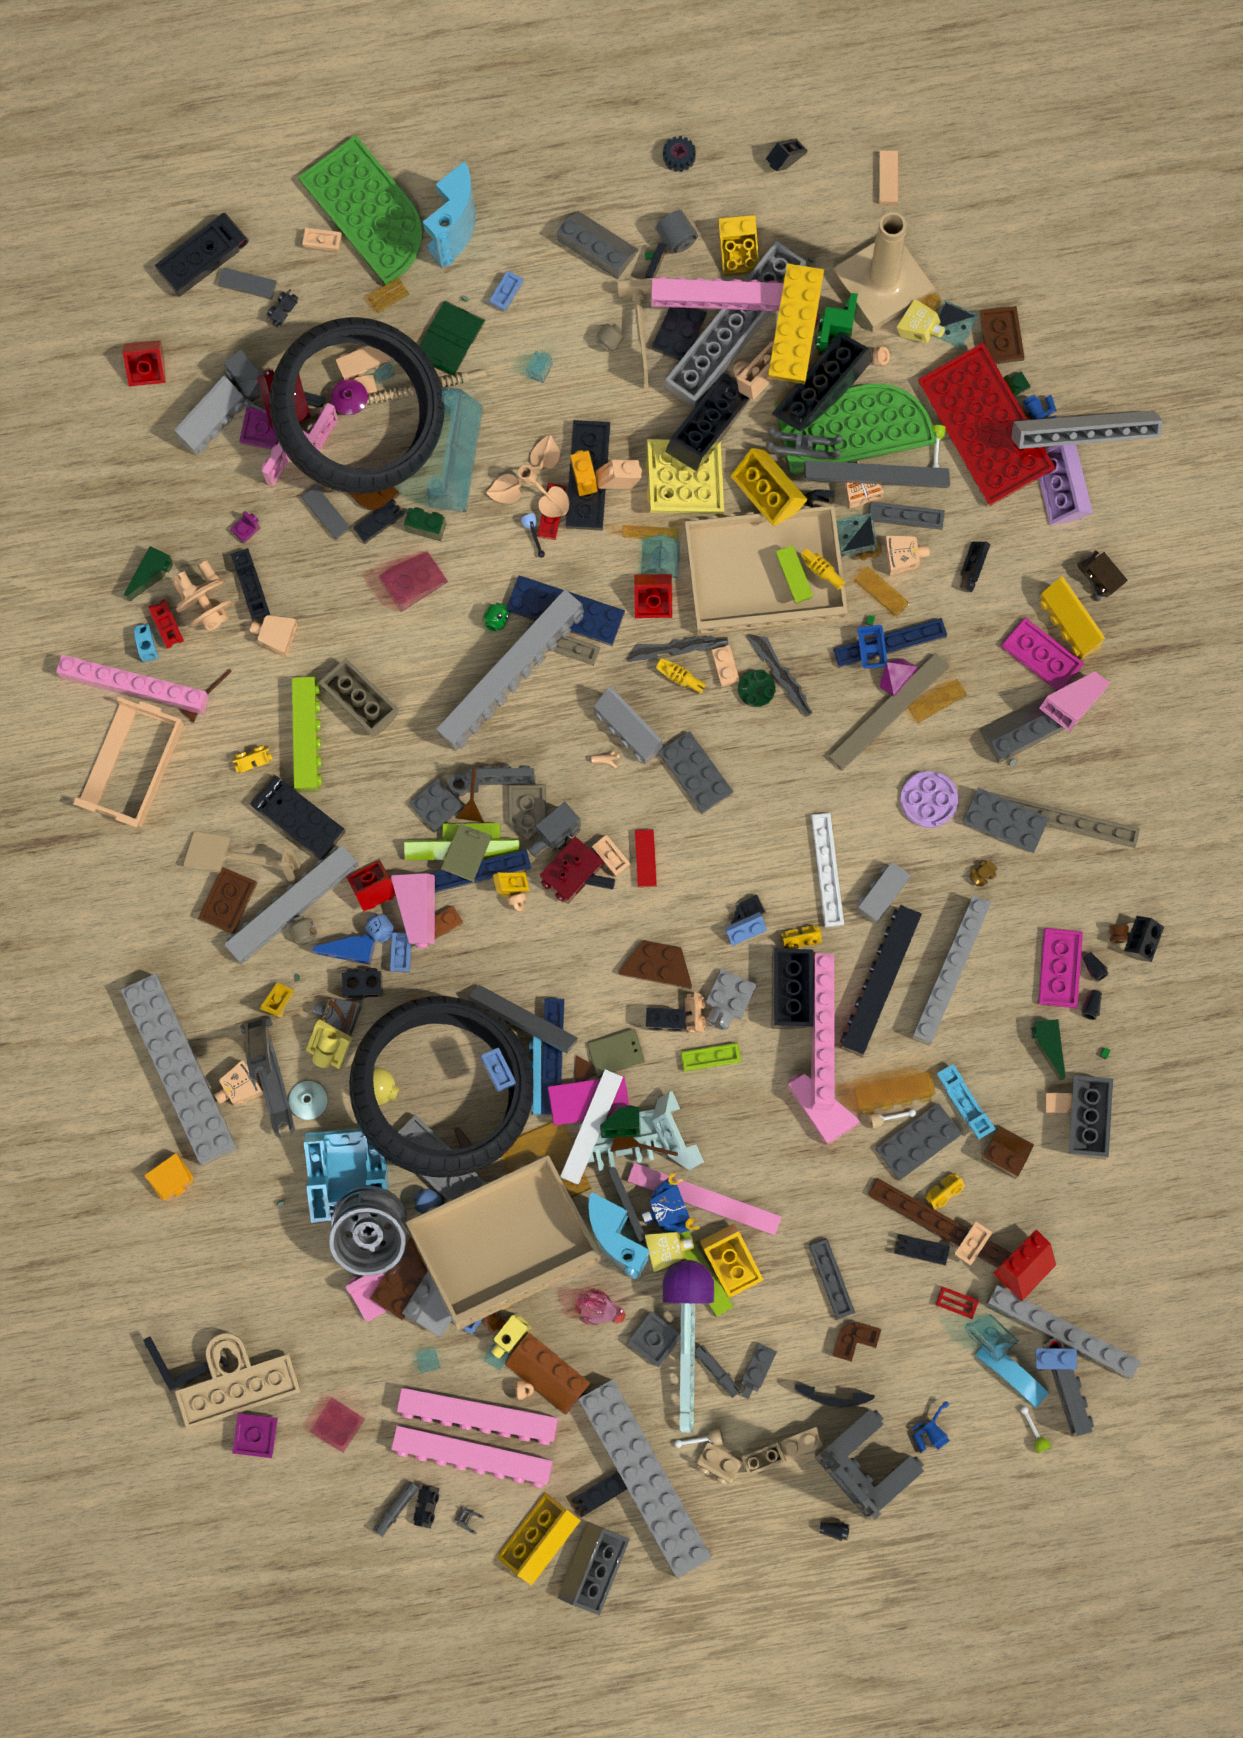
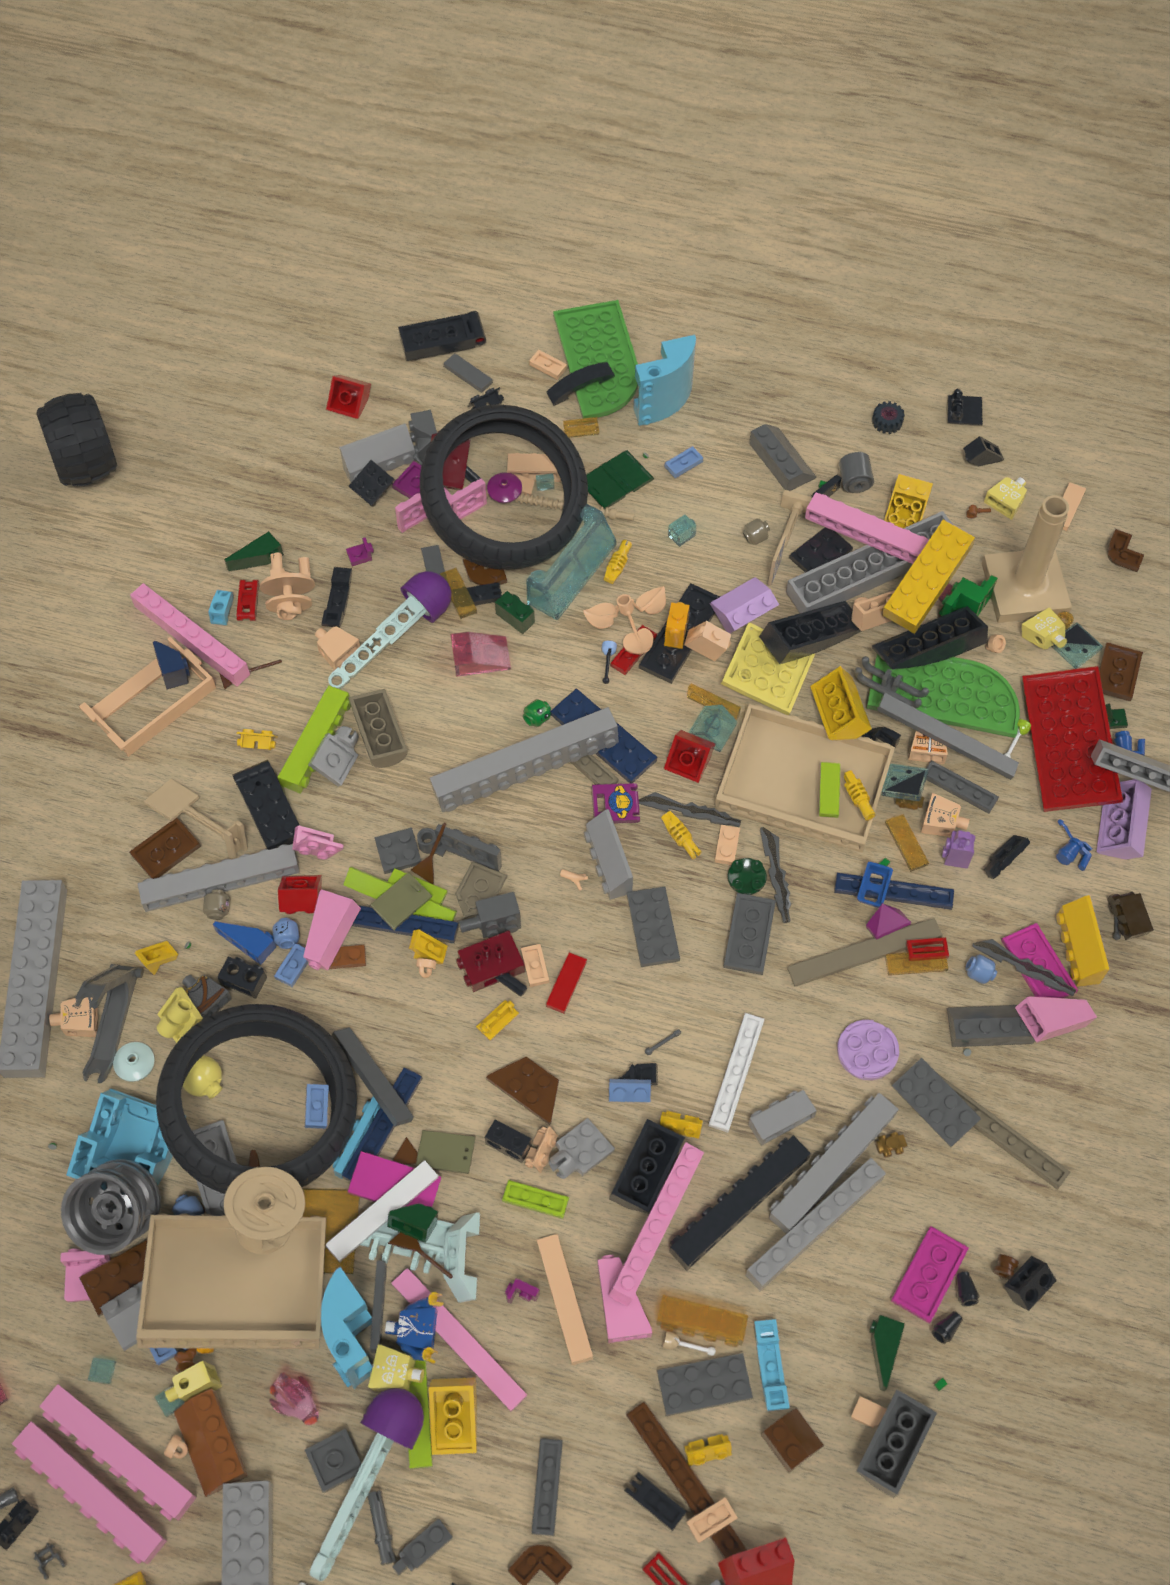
camera: 20 degrees right, 15 degrees down
(135, 725) = (172, 665): none -> dark blue slope
(220, 450) = (371, 483): none -> black hinge
(334, 742) = (335, 755): none -> light grey plate
(337, 547) = (425, 595): none -> piece
(361, 833) = (315, 842): none -> bright pink bracket
(362, 529) = (459, 594): none -> clear yellow tile
(363, 246) = (578, 379): none -> black slope
(494, 428) = (617, 562): none -> yellow hinge
(503, 1173) = (264, 1208): none -> tan piece
(602, 918) = (497, 1019): none -> yellow hinge
(611, 669) = (619, 800): none -> magenta container
(634, 421) = (744, 604): none -> lavender slope
(741, 1136) = (526, 1291): none -> magenta bracket
(744, 886) = (648, 1051): none -> dark grey hinge
(748, 111) = (964, 409): none -> black hinge
(775, 1127) = (565, 1300): none -> light nougat slope
(783, 741) = (749, 934): none -> dark grey plate
(802, 221) = (973, 510): none -> dark orange hand
(828, 192) = (1007, 496): none -> light yellow torso
(928, 692) = (927, 956): none -> red tile
(931, 580) = (959, 849): none -> medium lavender hinge
(943, 912) = (833, 1163): none -> light grey brick
(958, 209) = (1120, 554): none -> reddish brown plate
(995, 682) = (981, 969): none -> medium blue head
(1027, 536) = (1069, 852): none -> blue piece
(1031, 663) = (1024, 966): none -> dark grey sword

